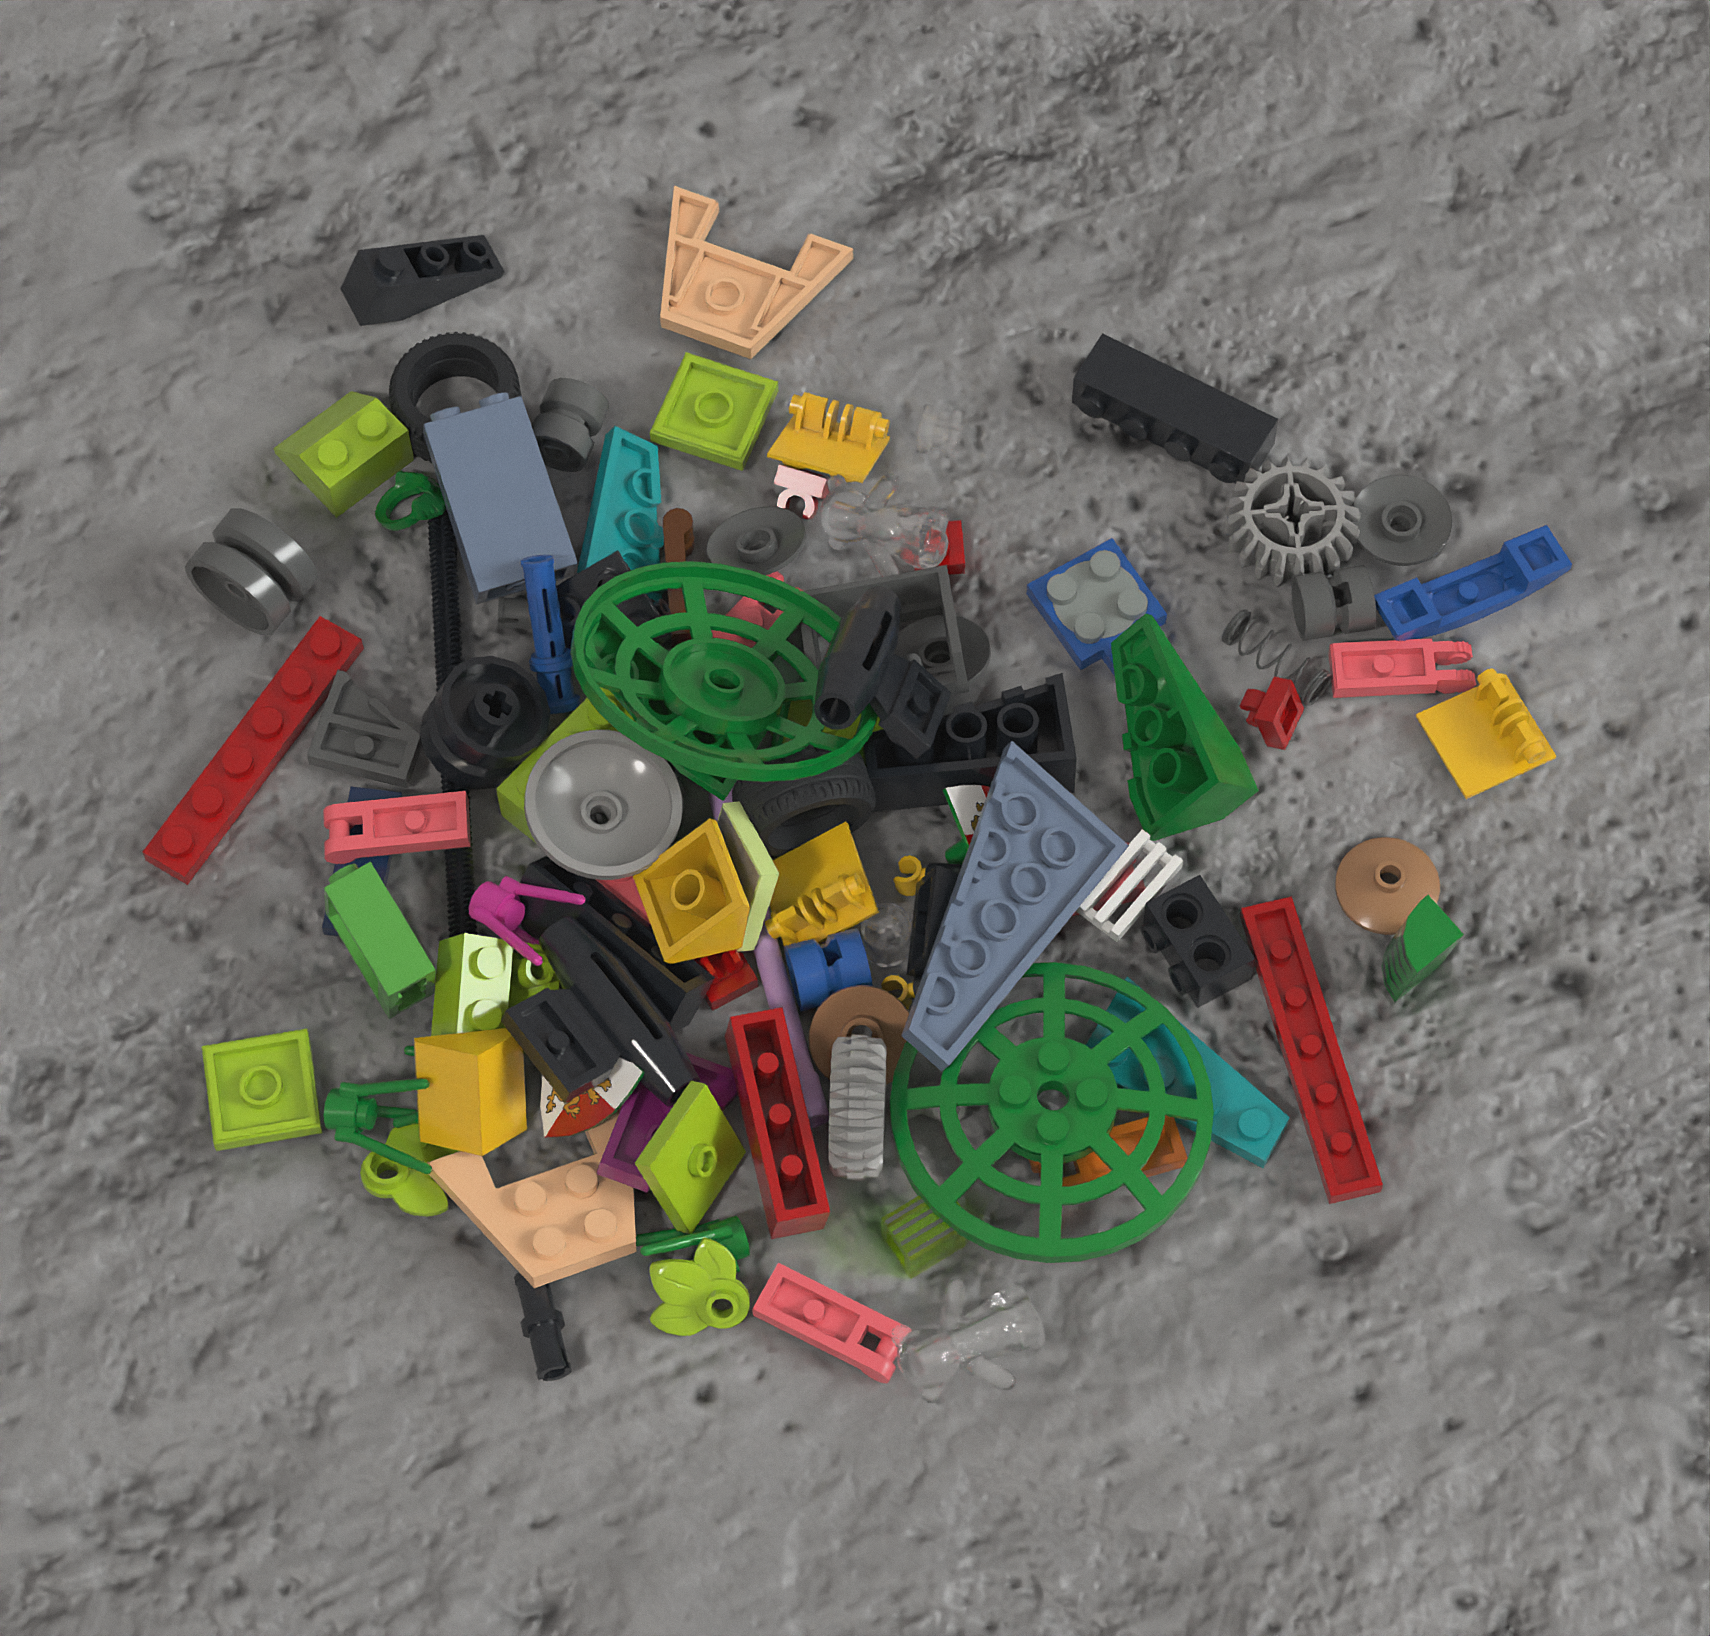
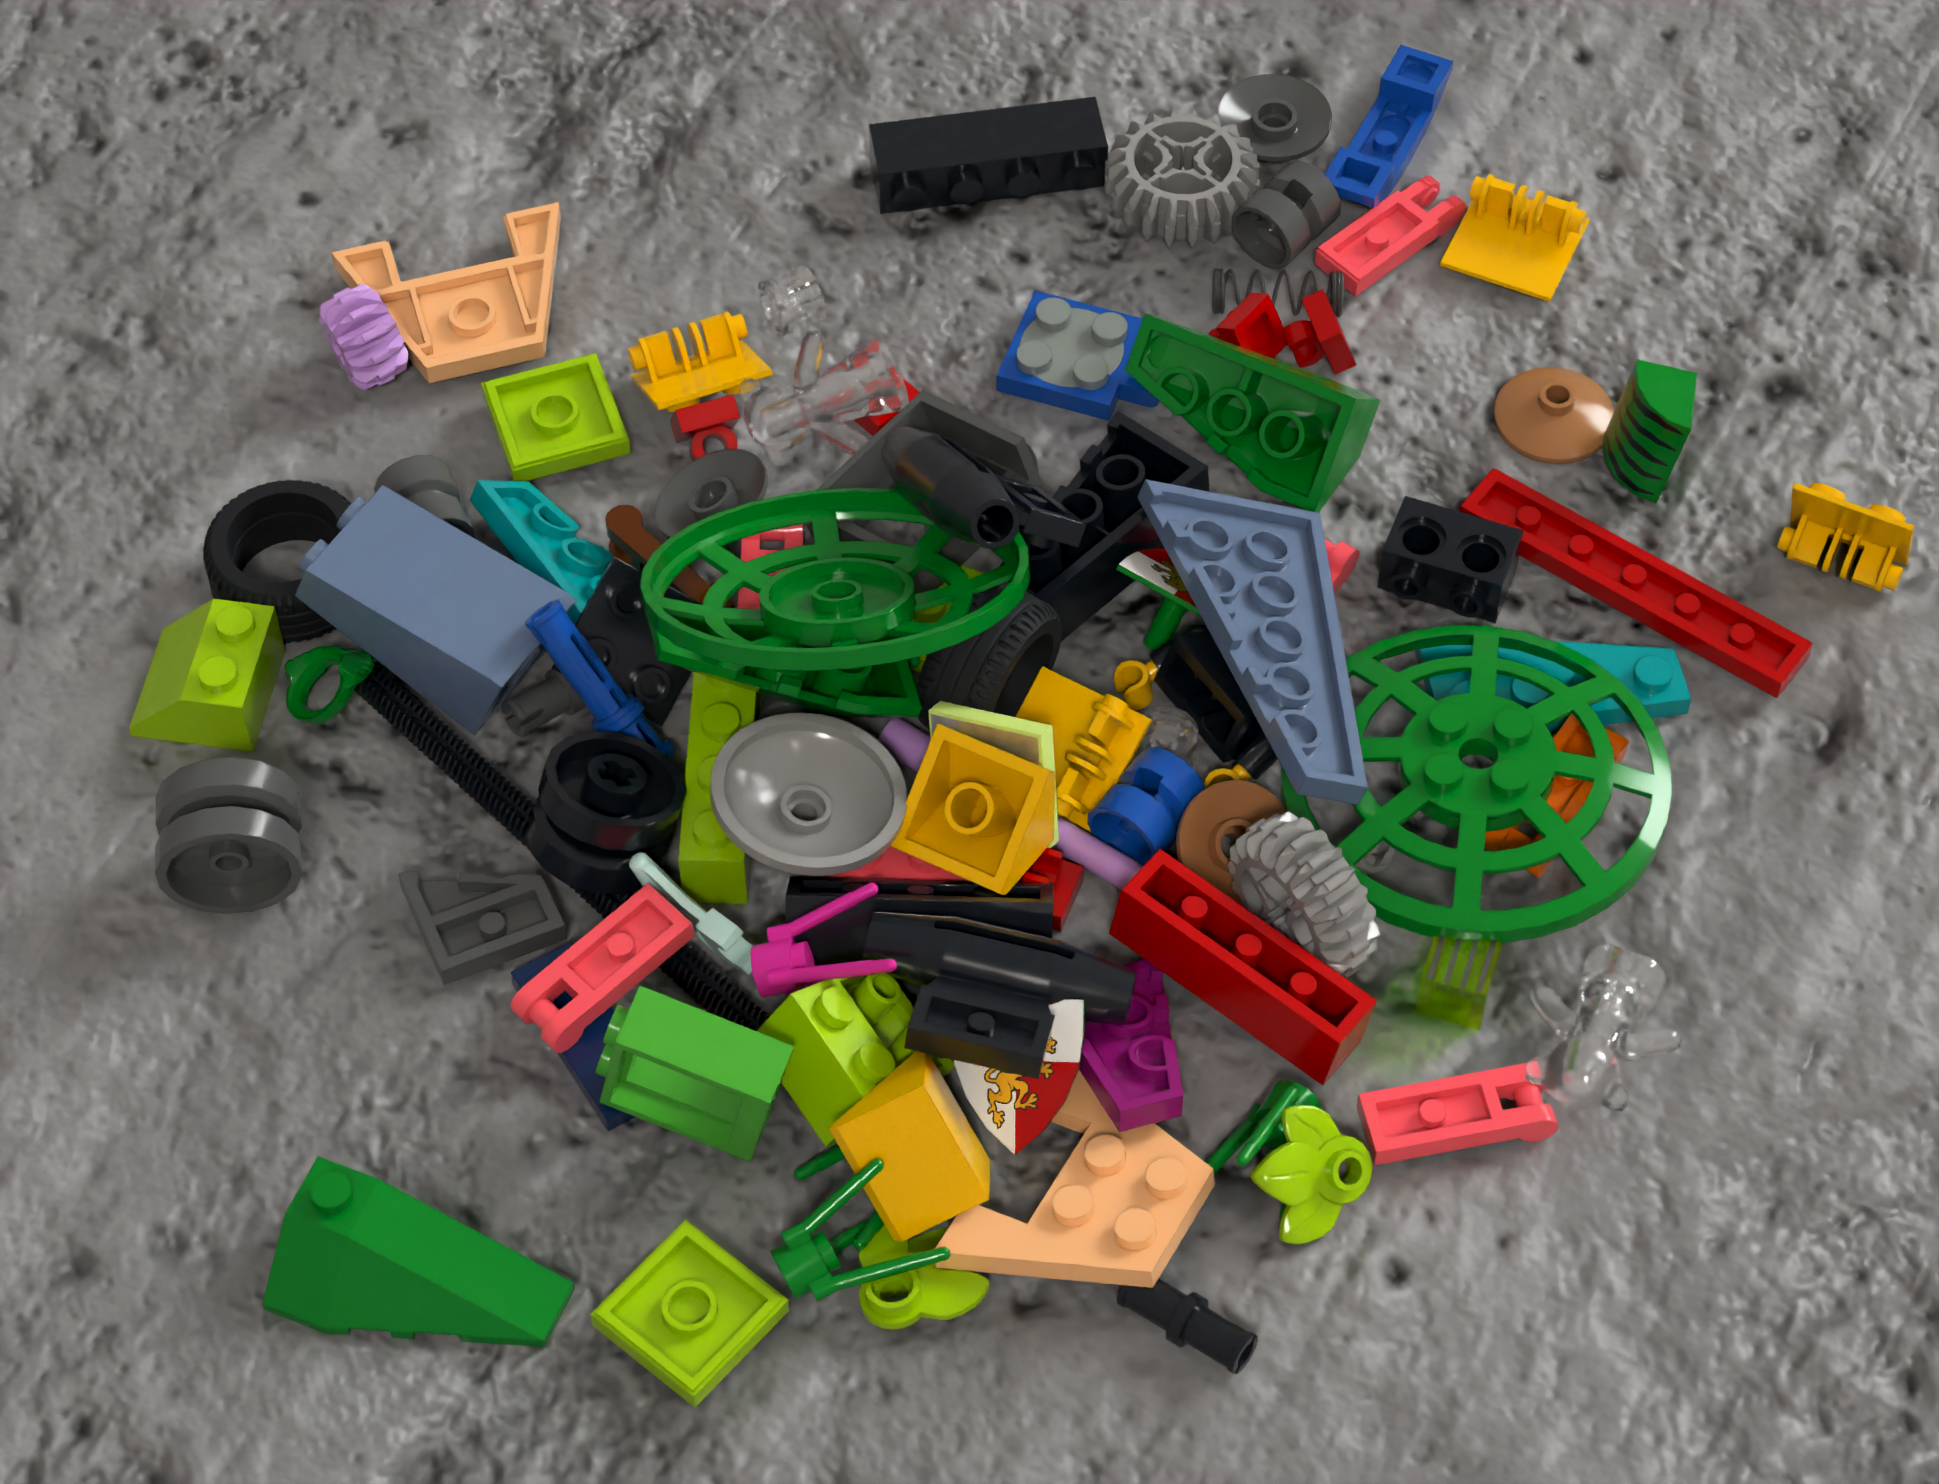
camera: 40 degrees left, 10 degrees down
(119, 928) = (387, 1262): none -> green wedge
(252, 751) = (372, 1010): red plate -> none
(414, 277) = (135, 488): black slope -> none
(490, 848) = (709, 927): none -> light aqua piece
(635, 266) = (363, 336): none -> lavender gear
(690, 1157) = (1192, 1052): lime plate -> none
(1155, 854) = (1349, 510): white tile -> none
(1225, 675) = (1253, 326): none -> red tile
(1475, 1112) = (1878, 531): none -> yellow hinge

